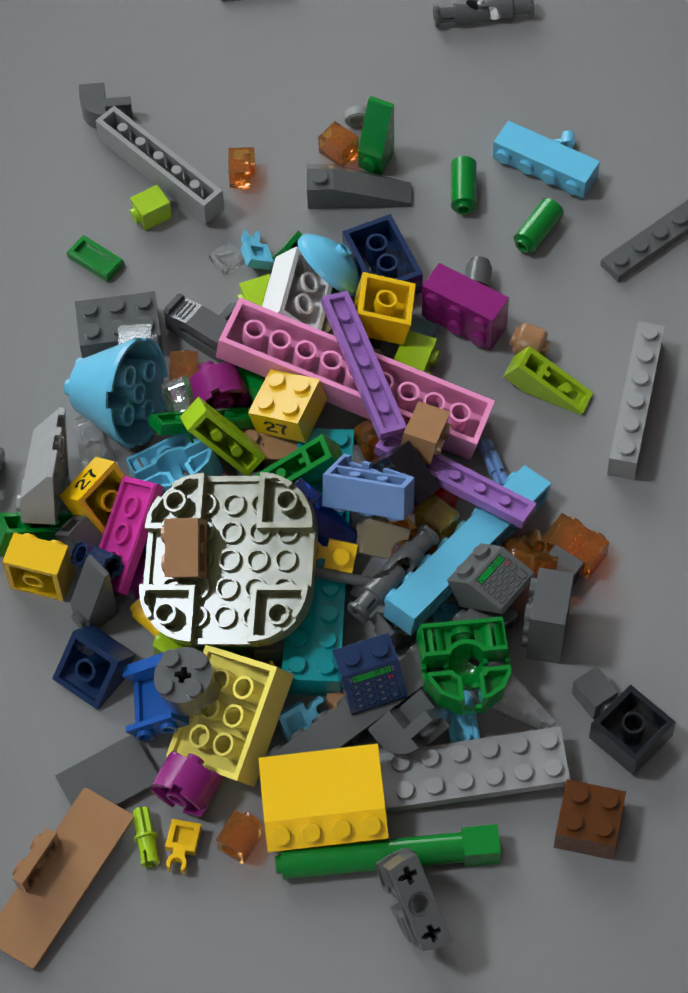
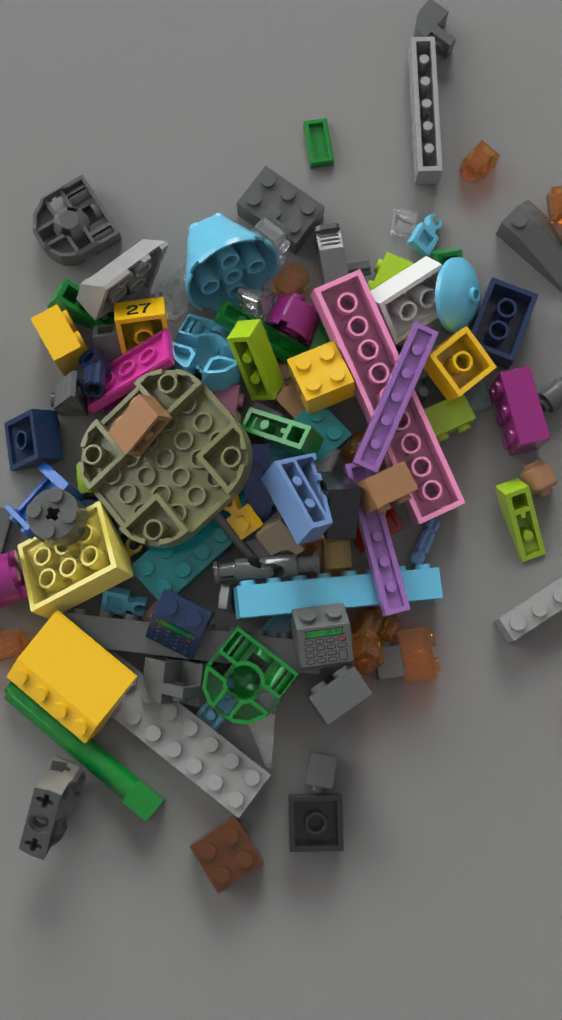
camera: 40 degrees right, 20 degrees up
(150, 208) = (388, 137): lime brick -> none

